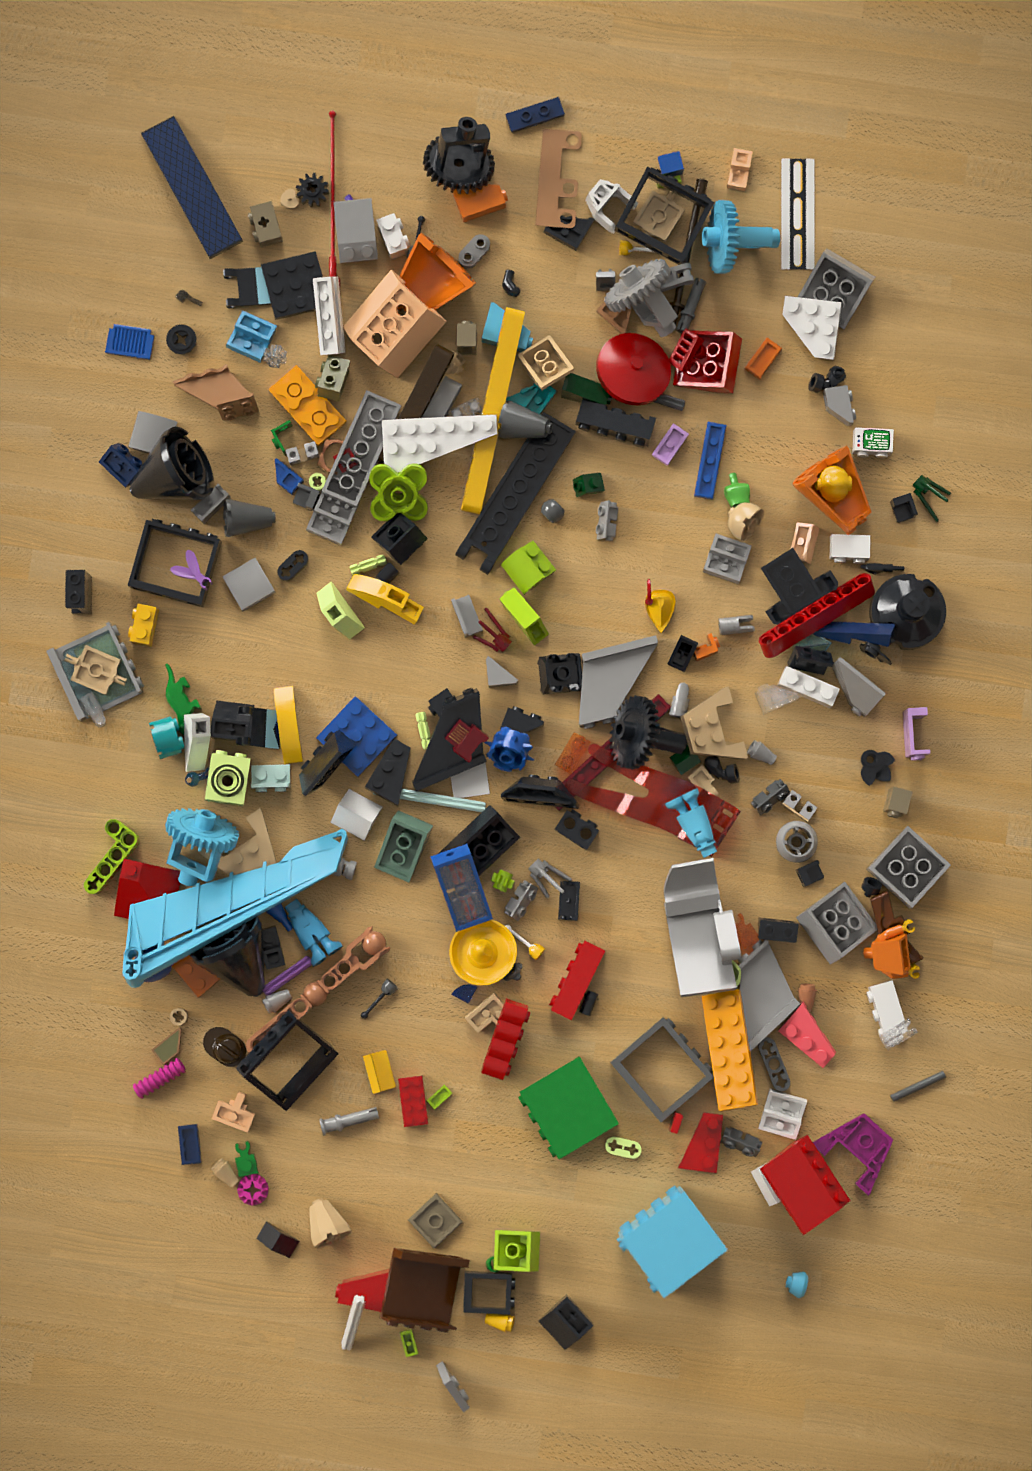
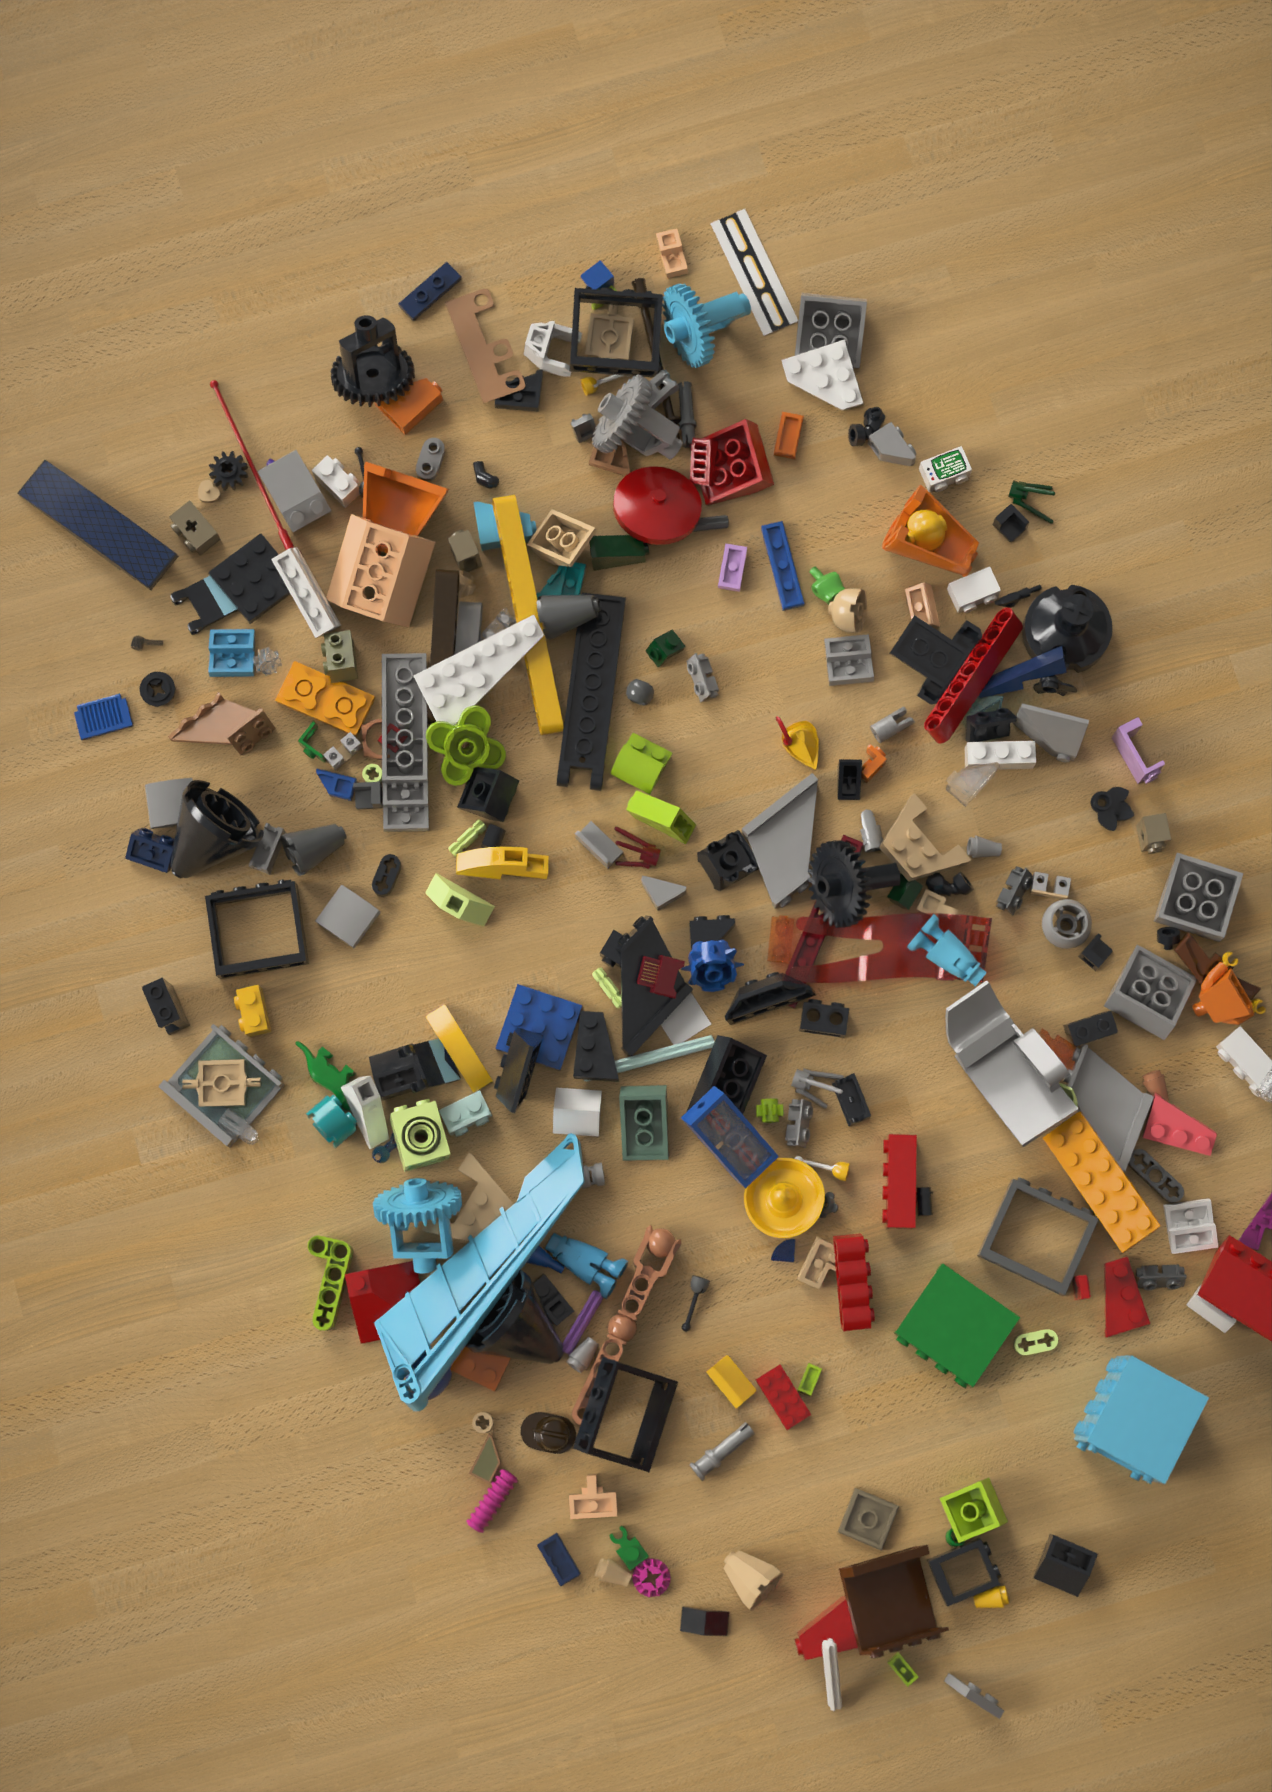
camera: 20 degrees left, 5 degrees down
(192, 572) = (281, 928): medium lavender piece -> none
(615, 423) = (665, 570): black wedge -> none

